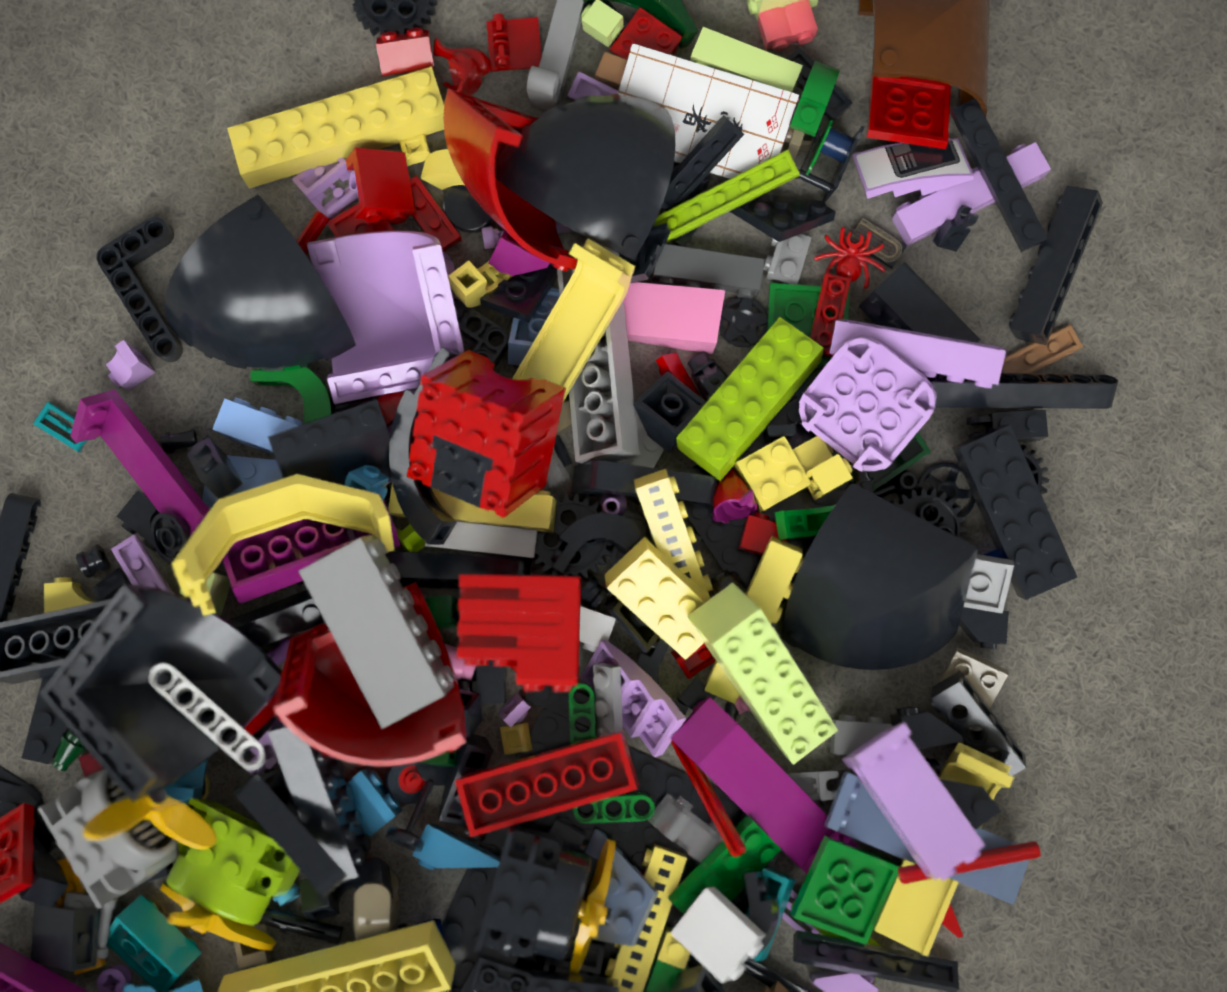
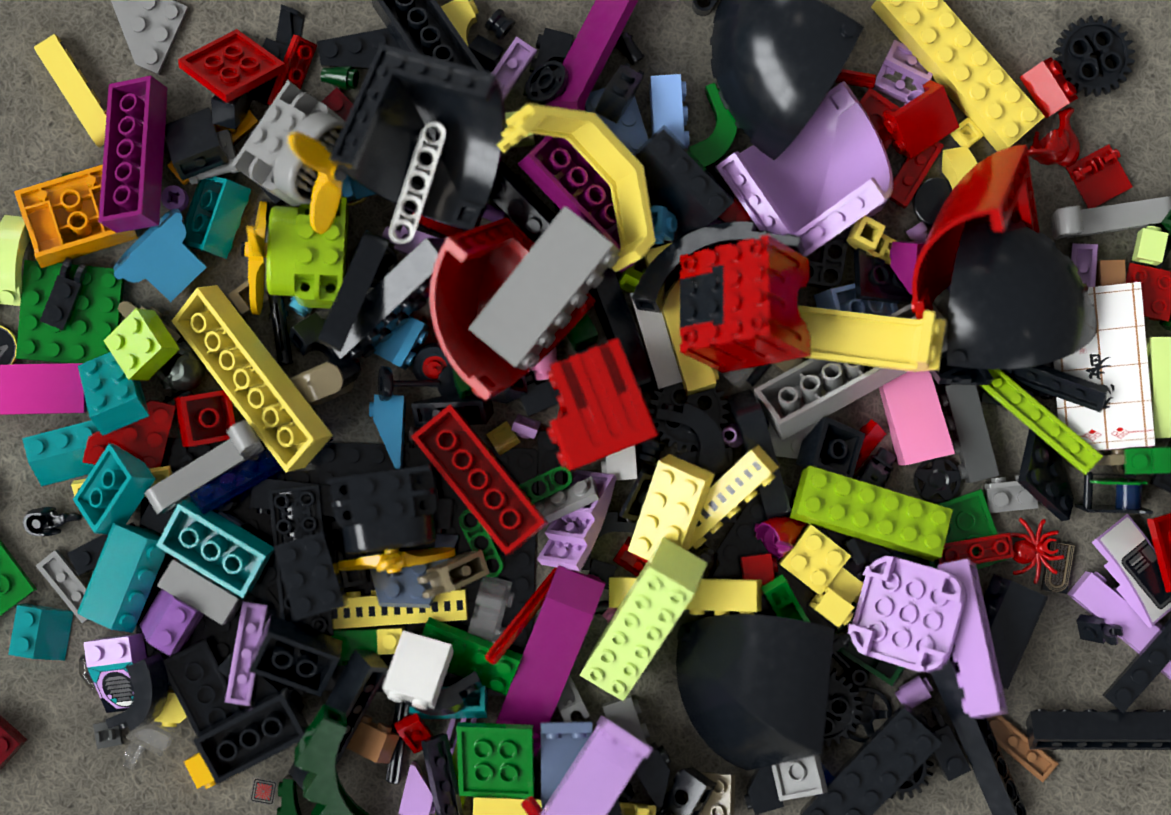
camera: 75 degrees right, 5 degrees up
(29, 786) = (296, 61): none -> red tile
(633, 851) = (454, 573): none -> dark tan hinge
(779, 964) = (412, 731): none -> red plate
(944, 433) = (914, 692): none -> lavender brick

